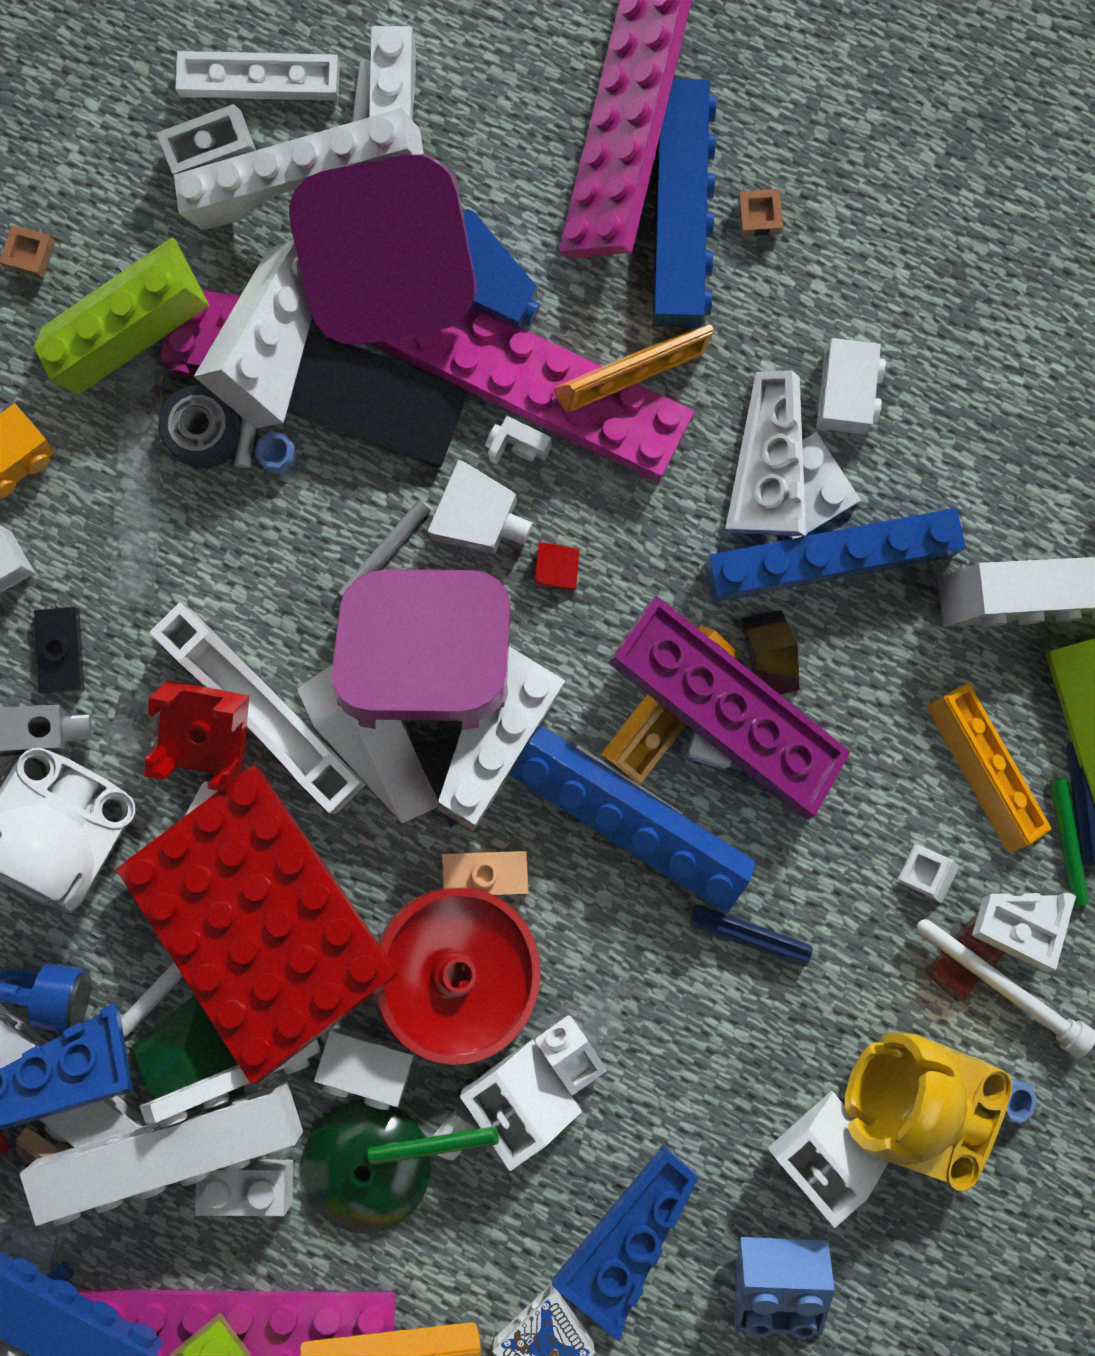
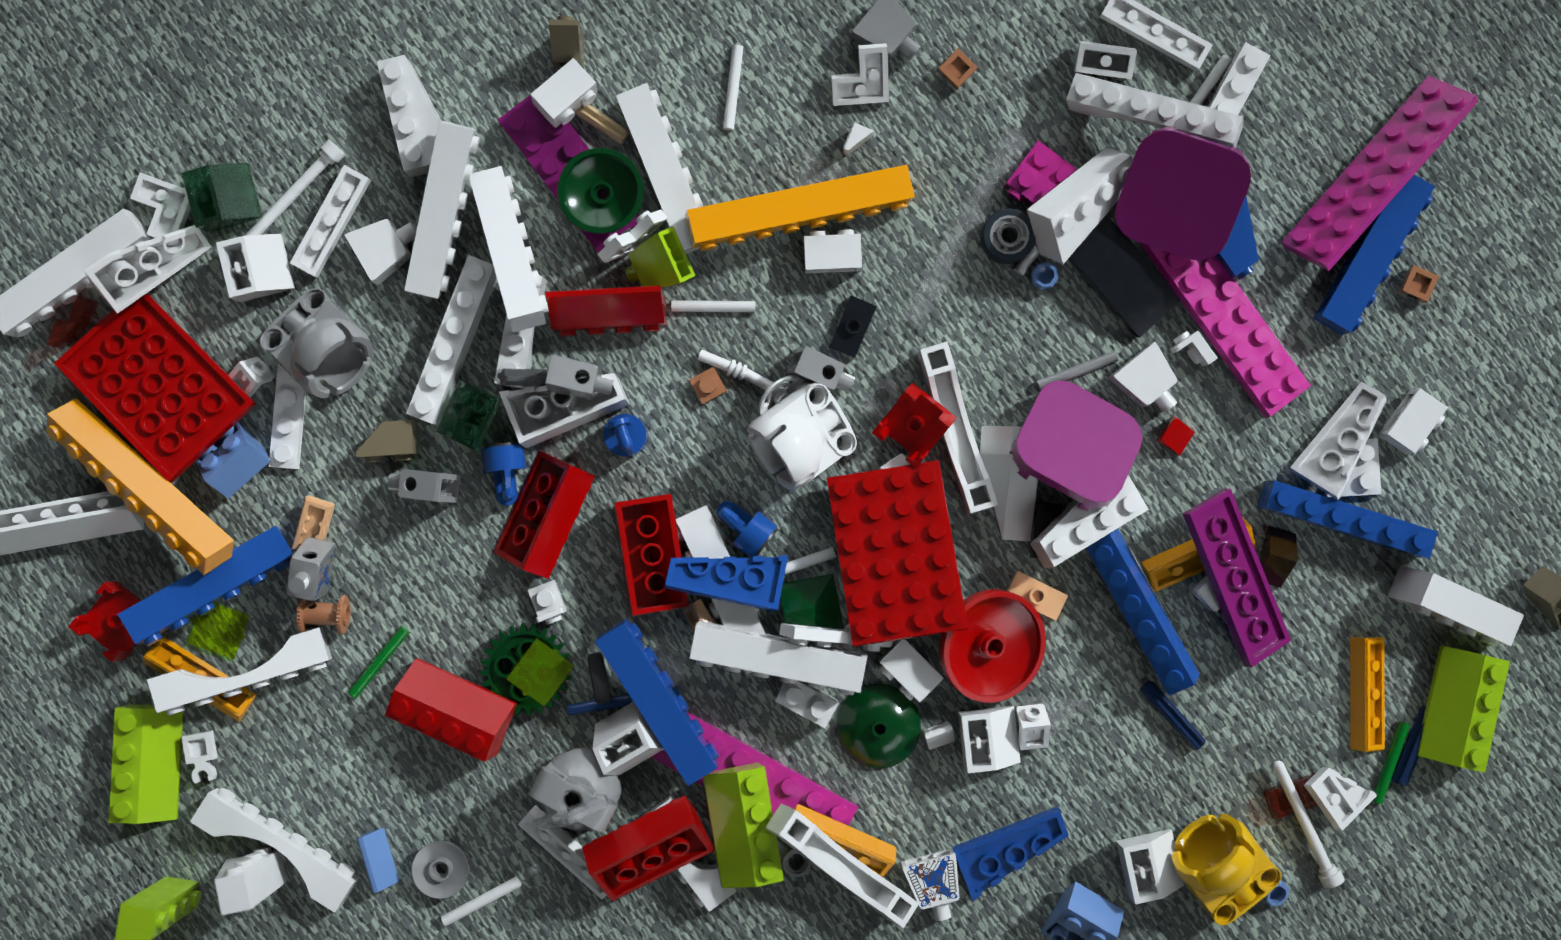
camera: 25 degrees right, 5 degrees up
(120, 319) = (997, 143): lime slope -> none
(433, 1145) = (931, 735): green bar -> none
(633, 368) = (1289, 340): light orange slope -> none
(928, 873) = (1296, 735): white slope -> none

